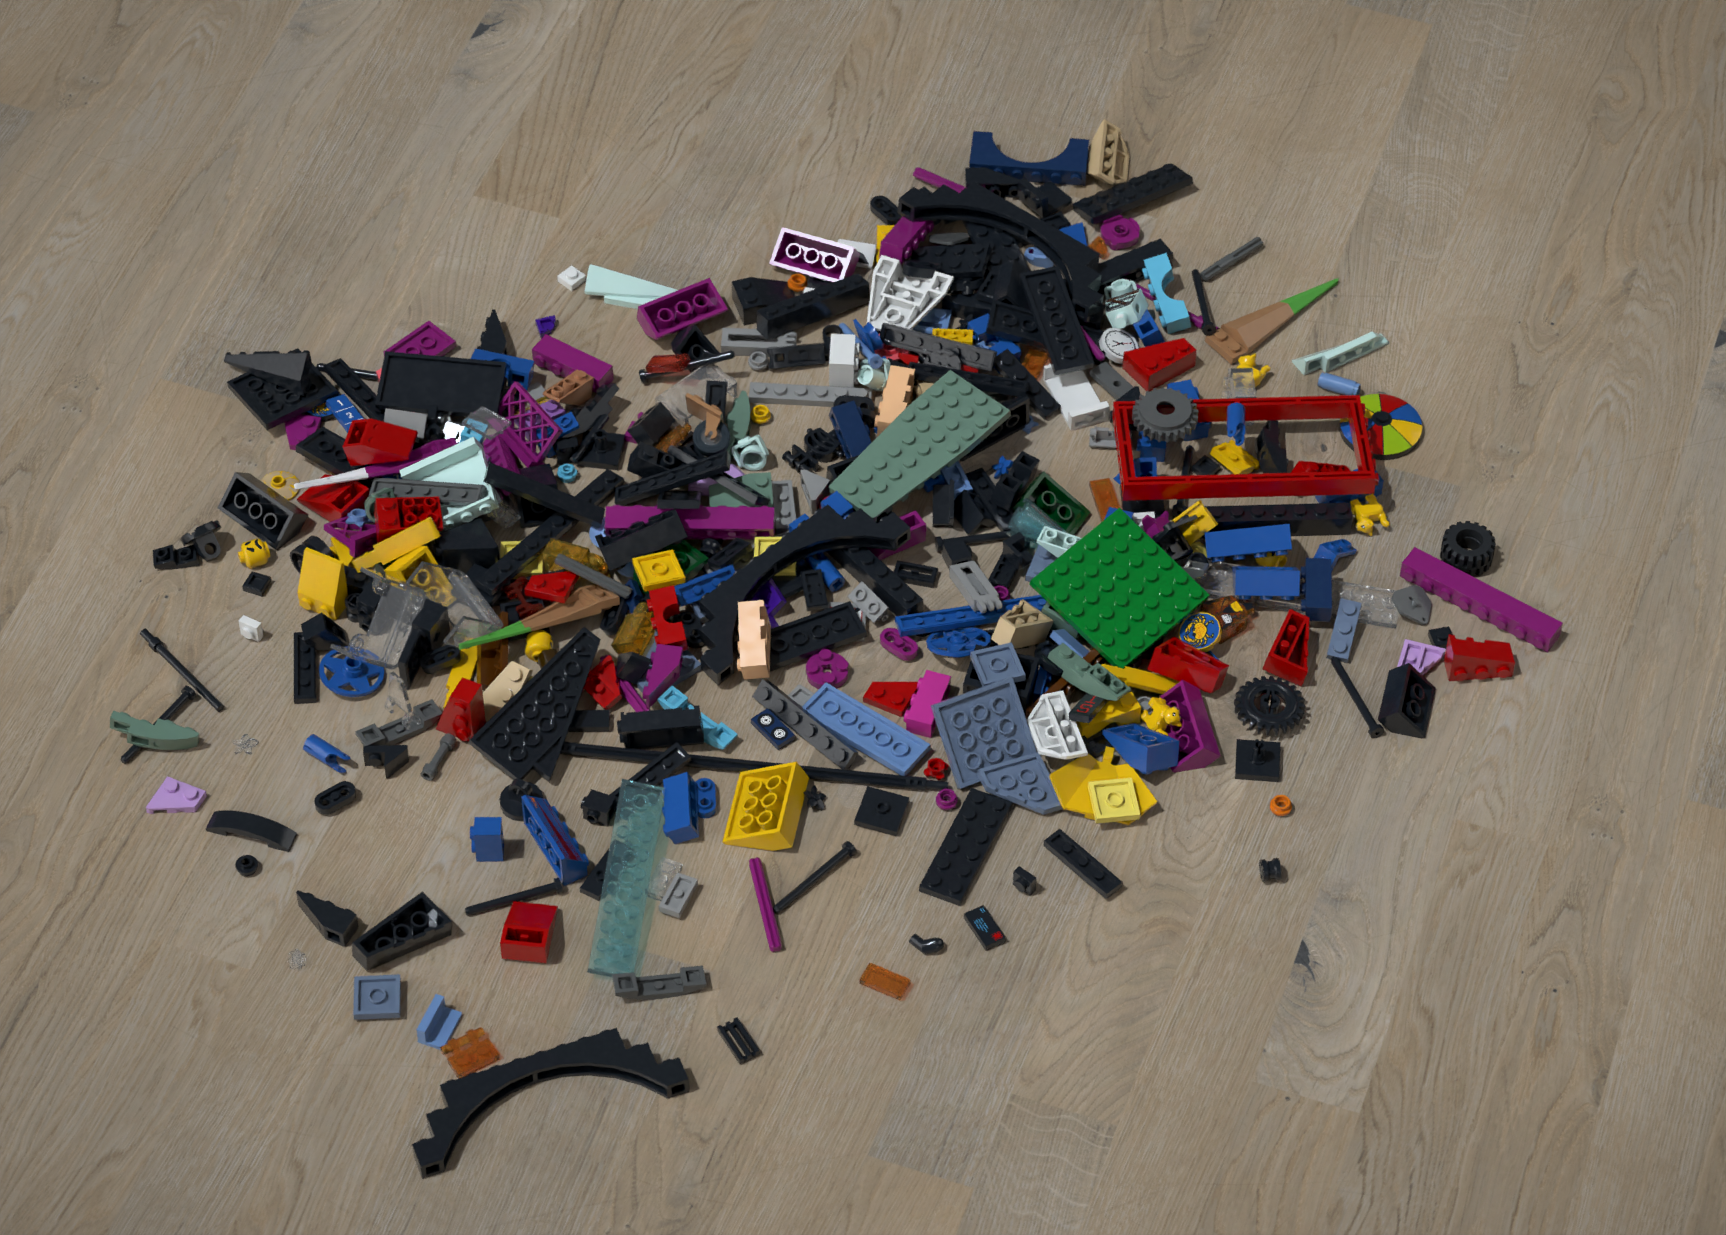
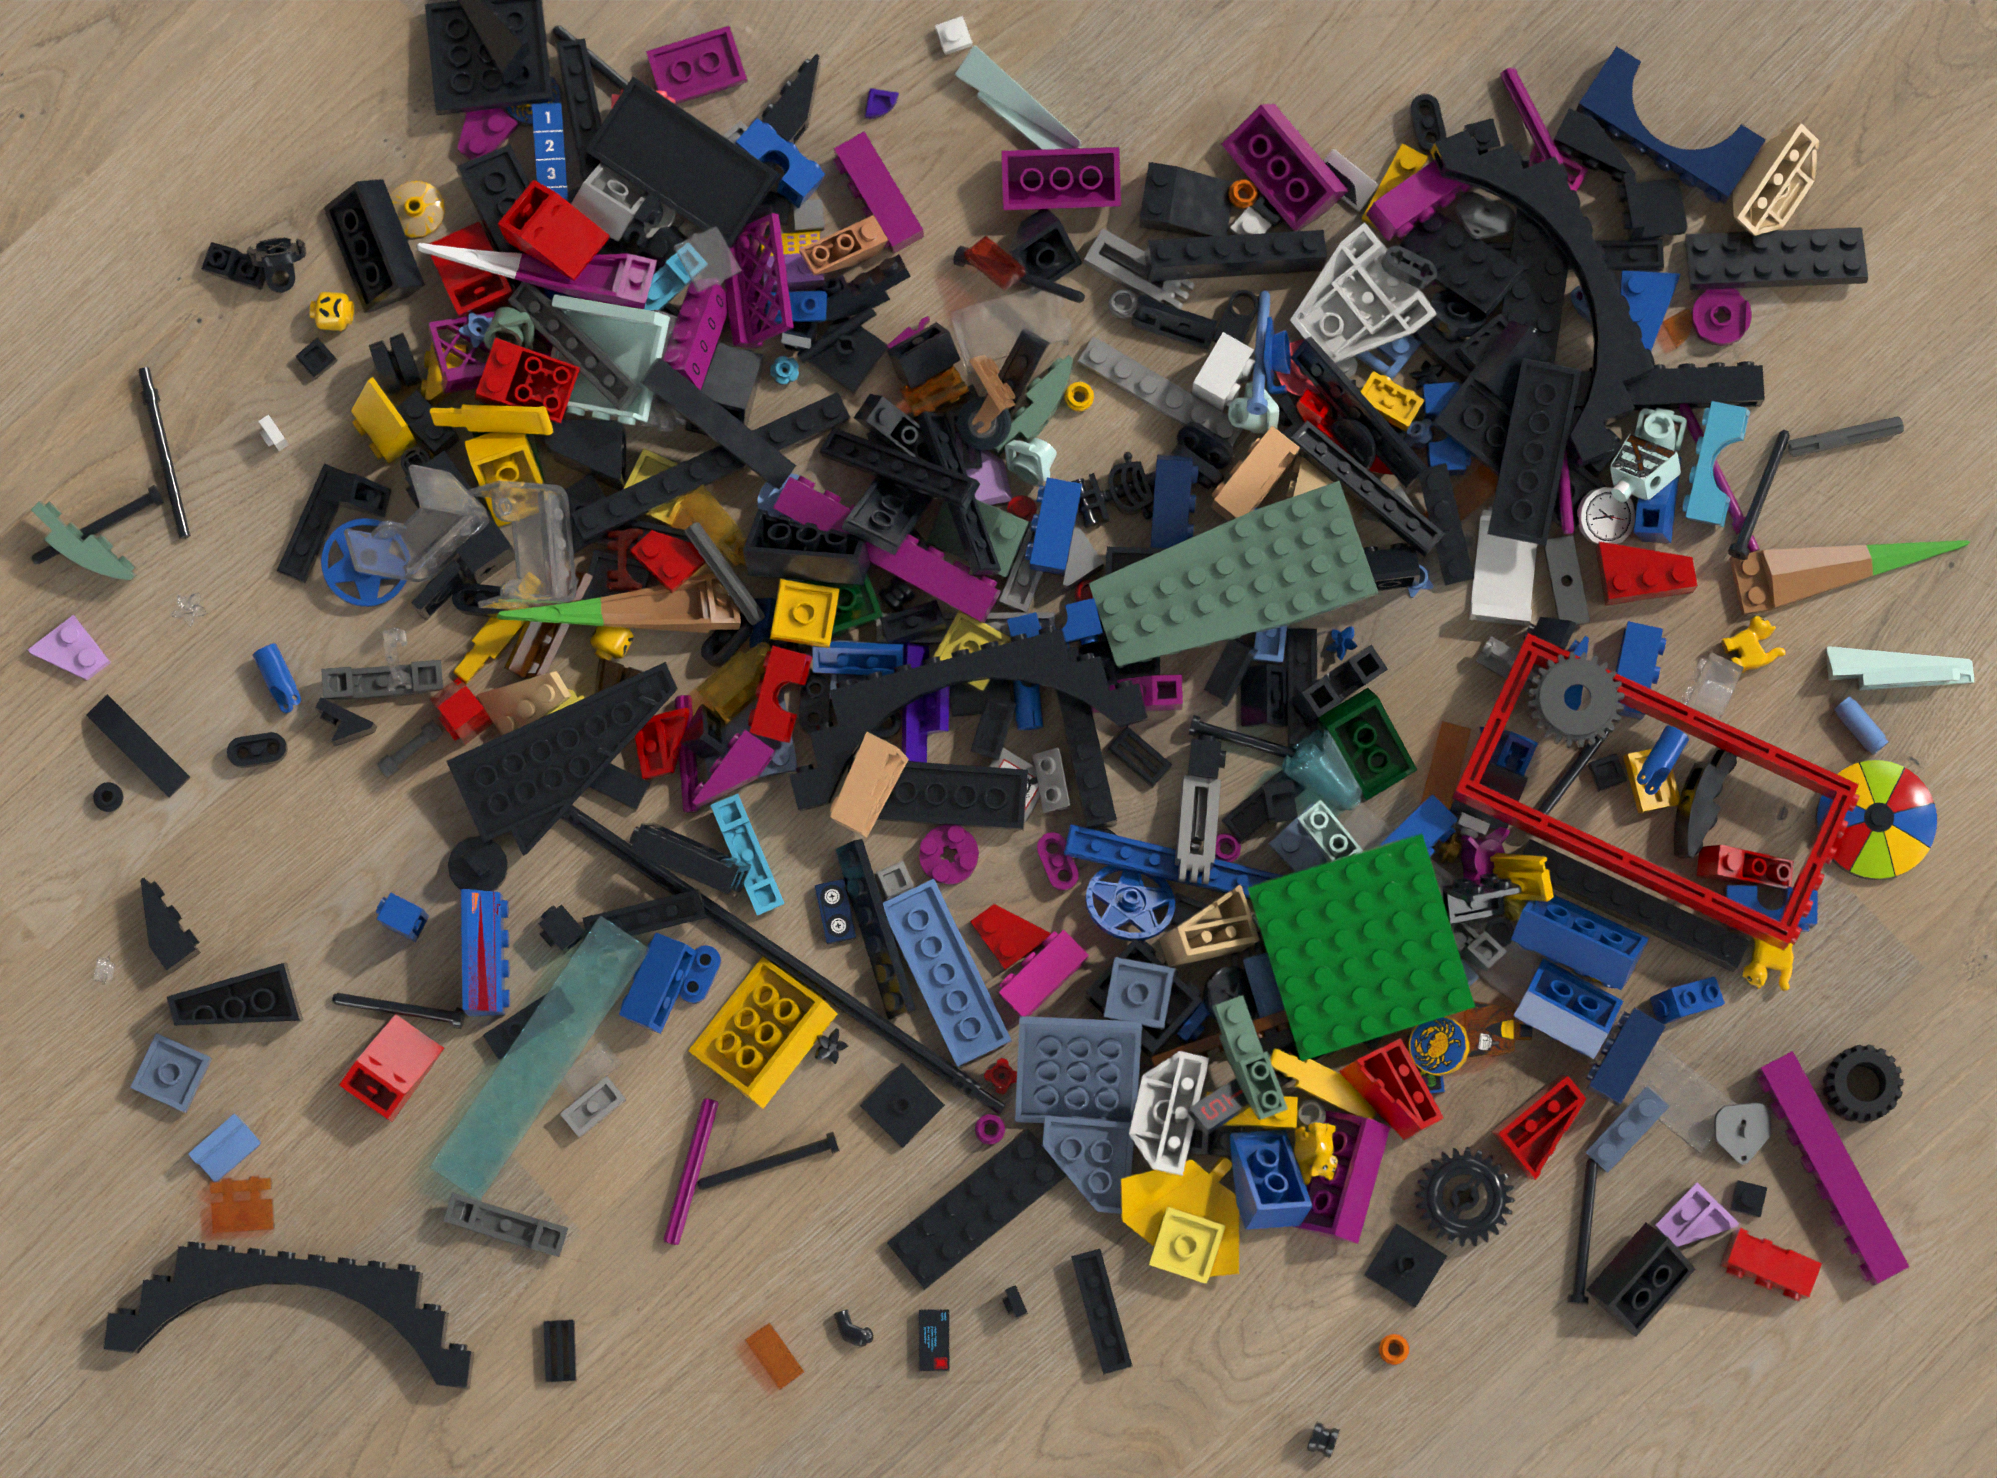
camera: 30 degrees right, 30 degrees up
(787, 473) = (1054, 526): none -> blue brick

